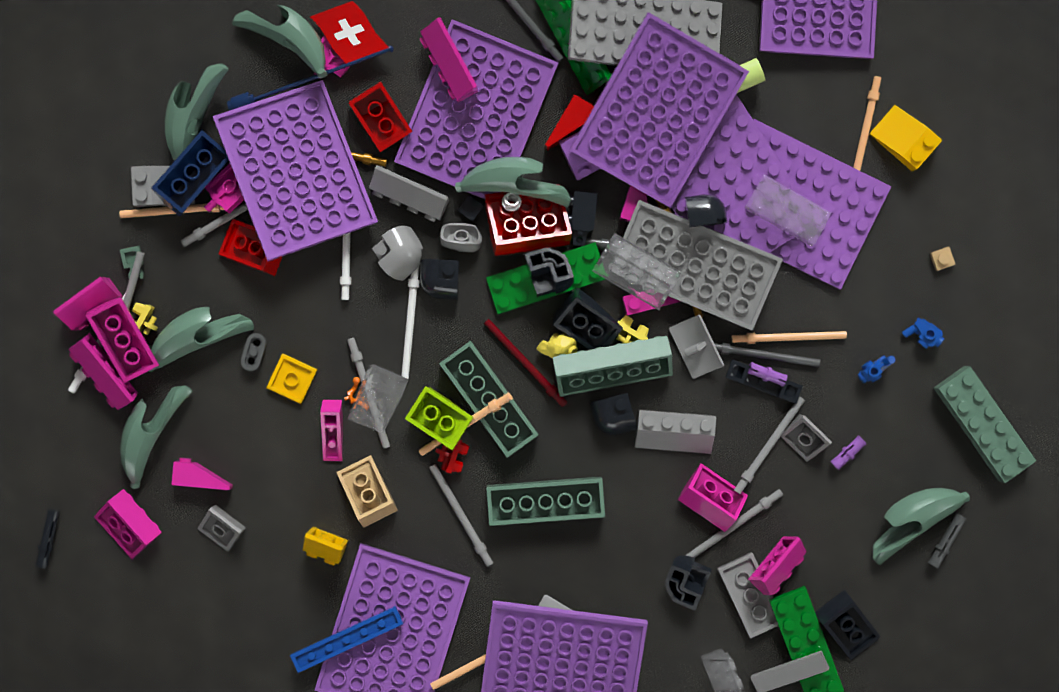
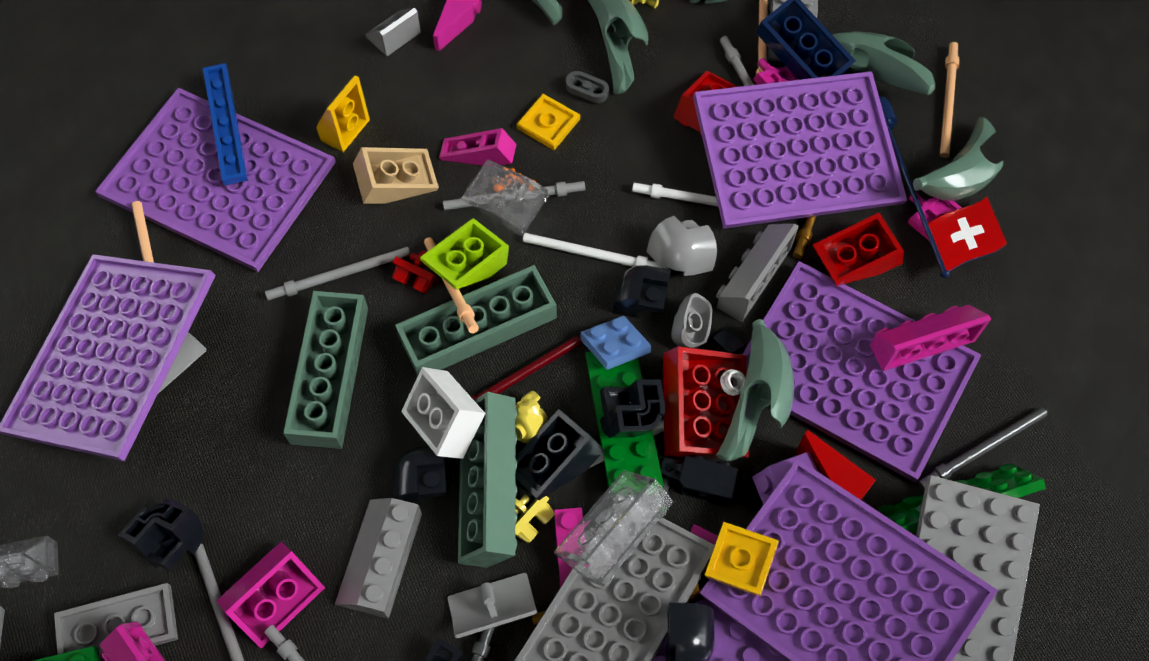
camera: 105 degrees right, 25 degrees down
(175, 47) = (951, 65): none -> light nougat bar
(488, 292) = (615, 342): none -> medium blue plate
(572, 406) = (442, 413): none -> white brick
(647, 182) = (741, 559): none -> yellow plate

